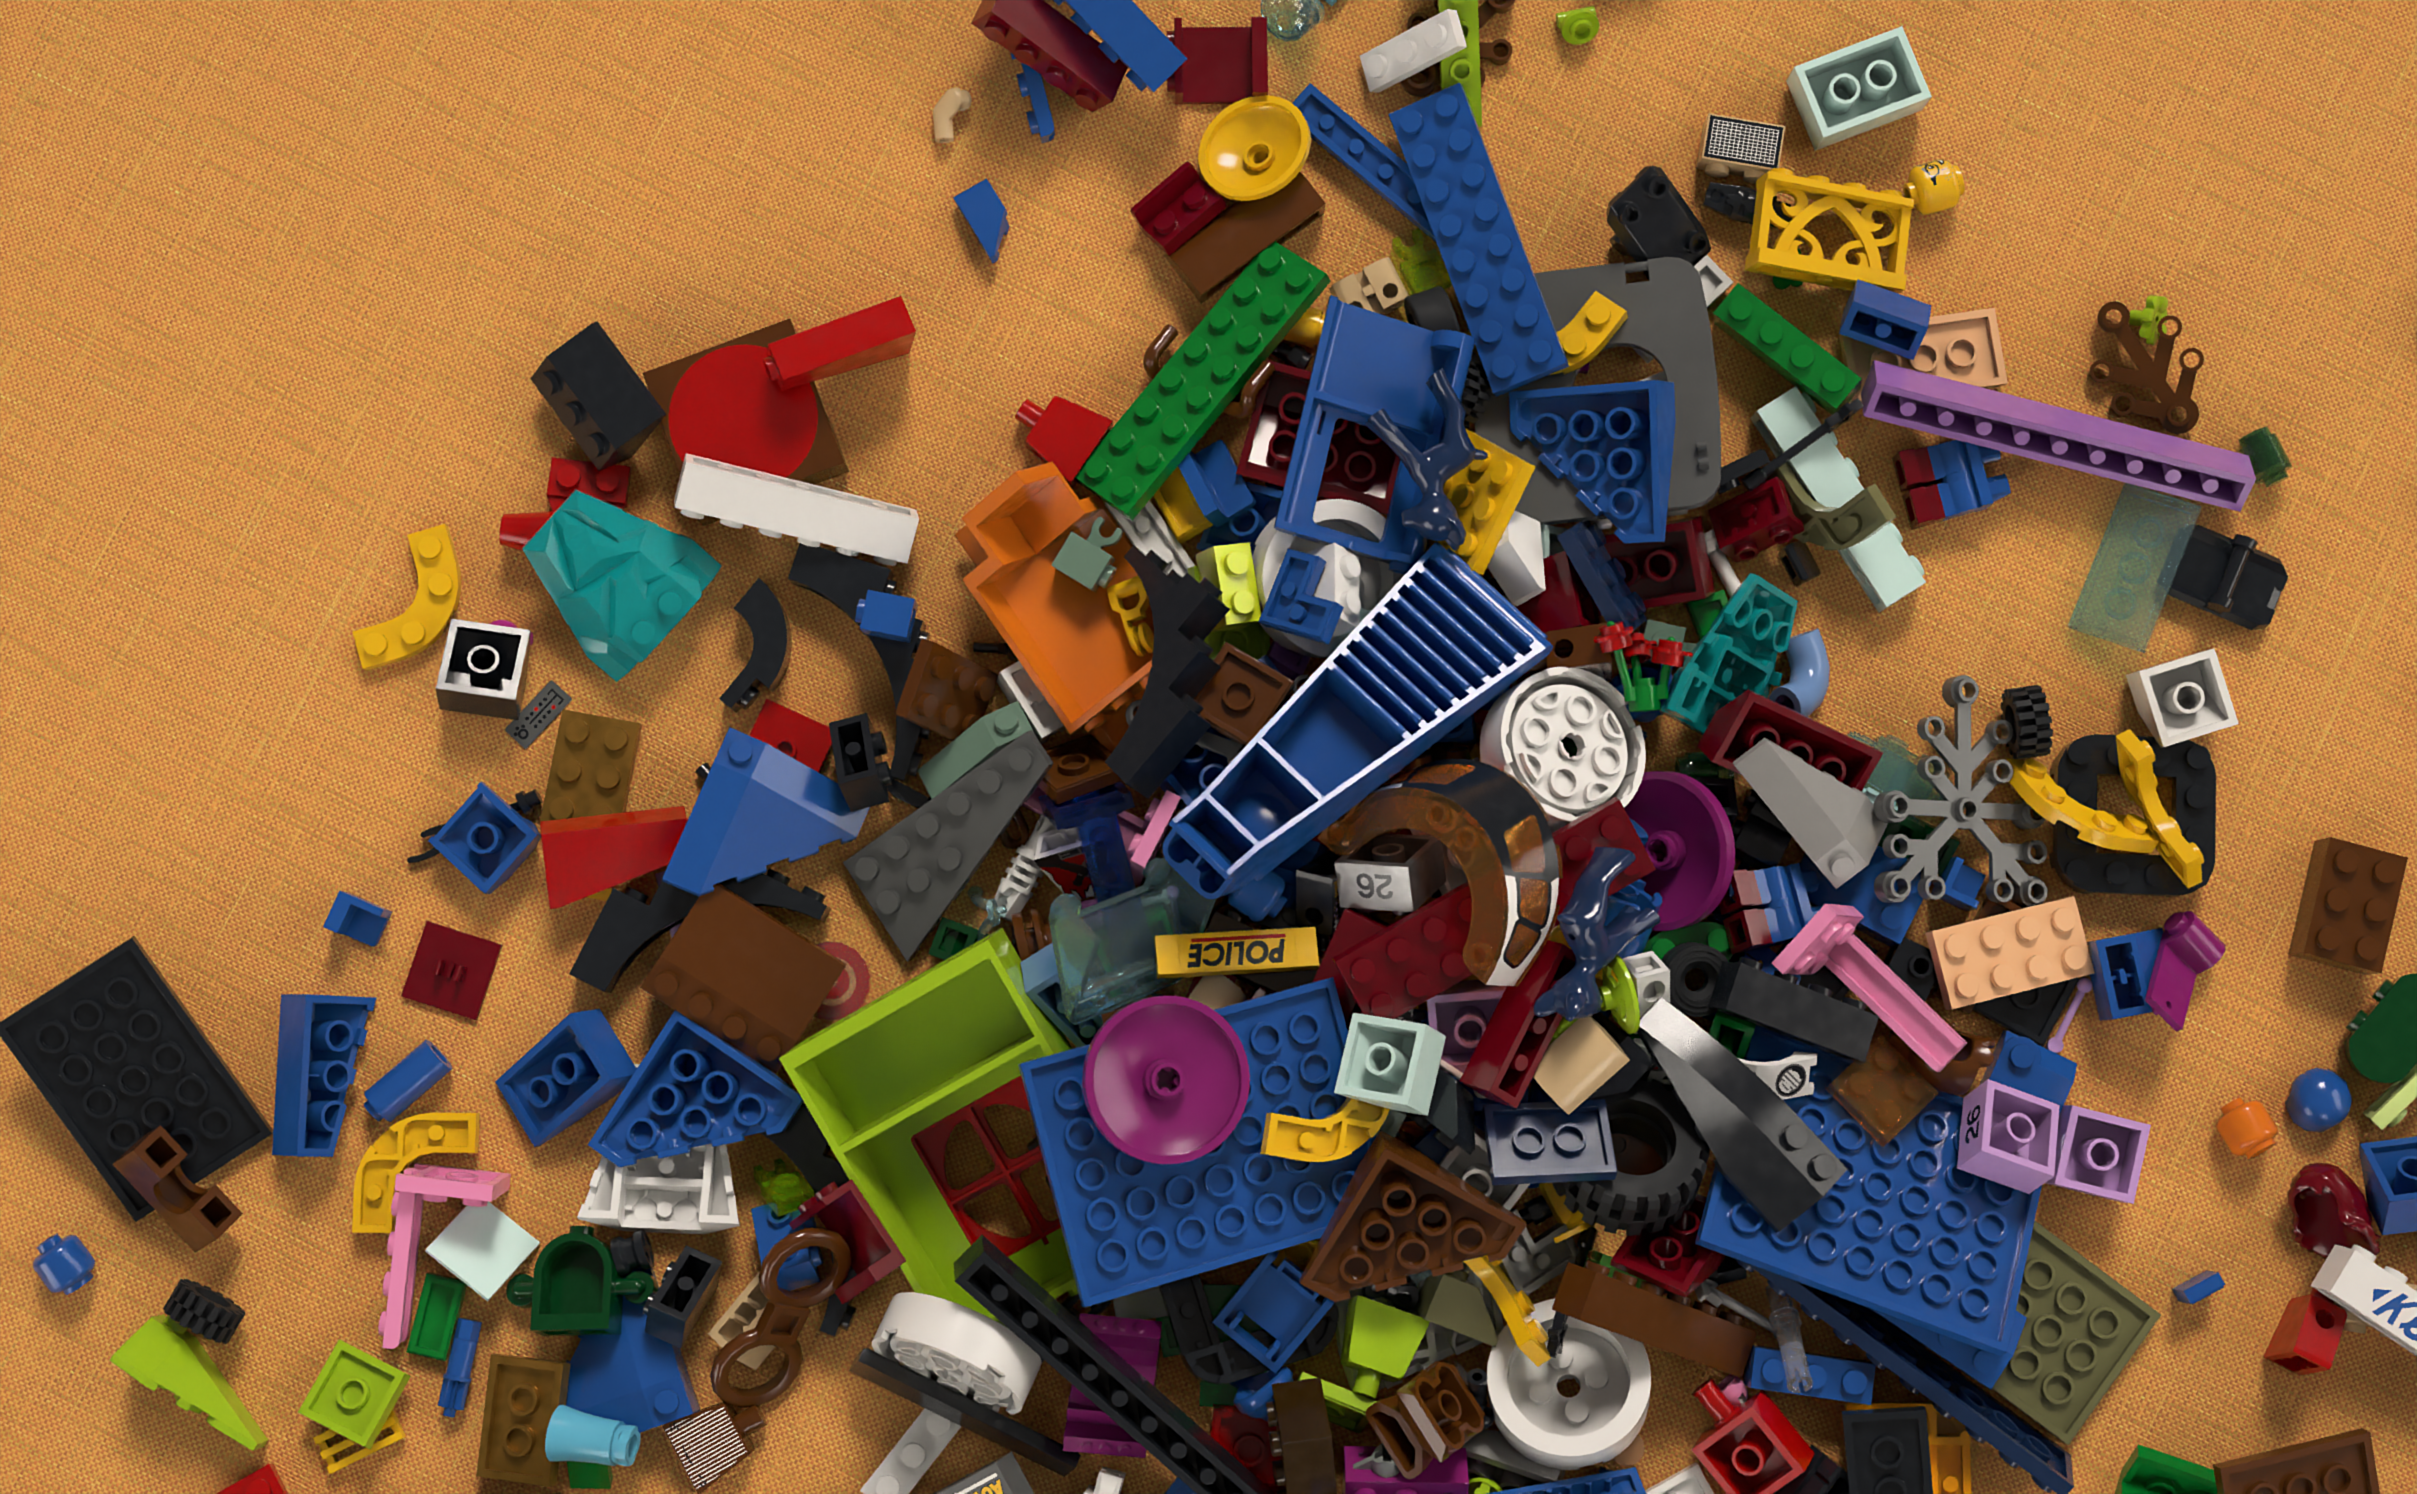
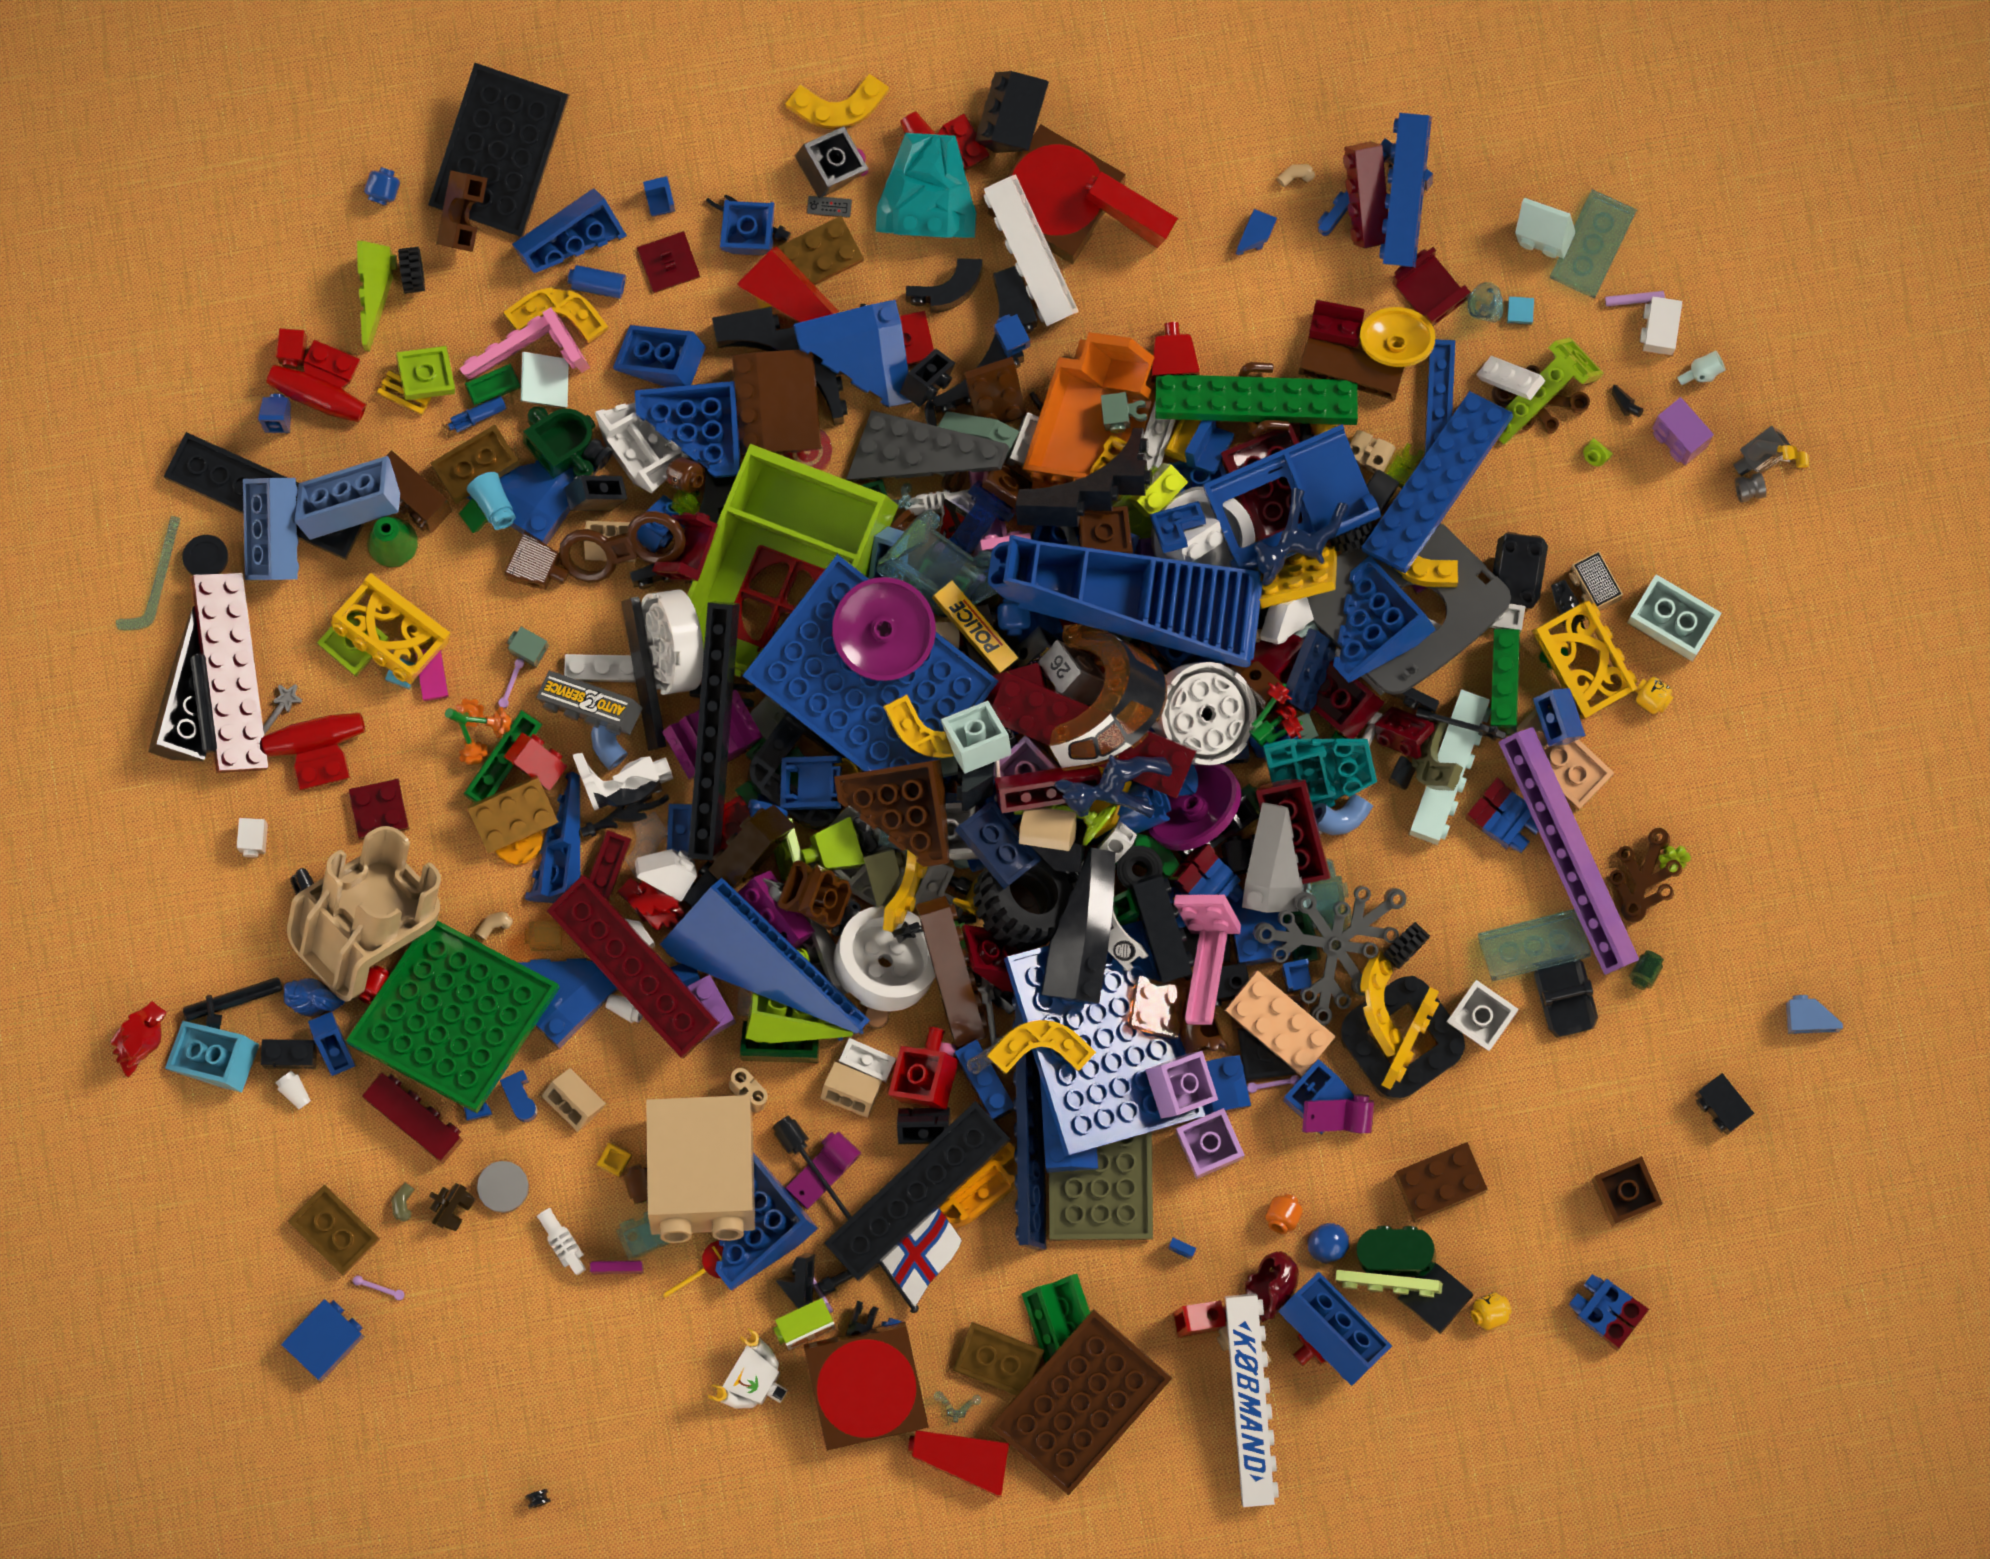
camera: 55 degrees right, 5 degrees down
(749, 1165) = (685, 475): none -> reddish brown head
(1830, 1278) = (1040, 1034): none -> yellow plate

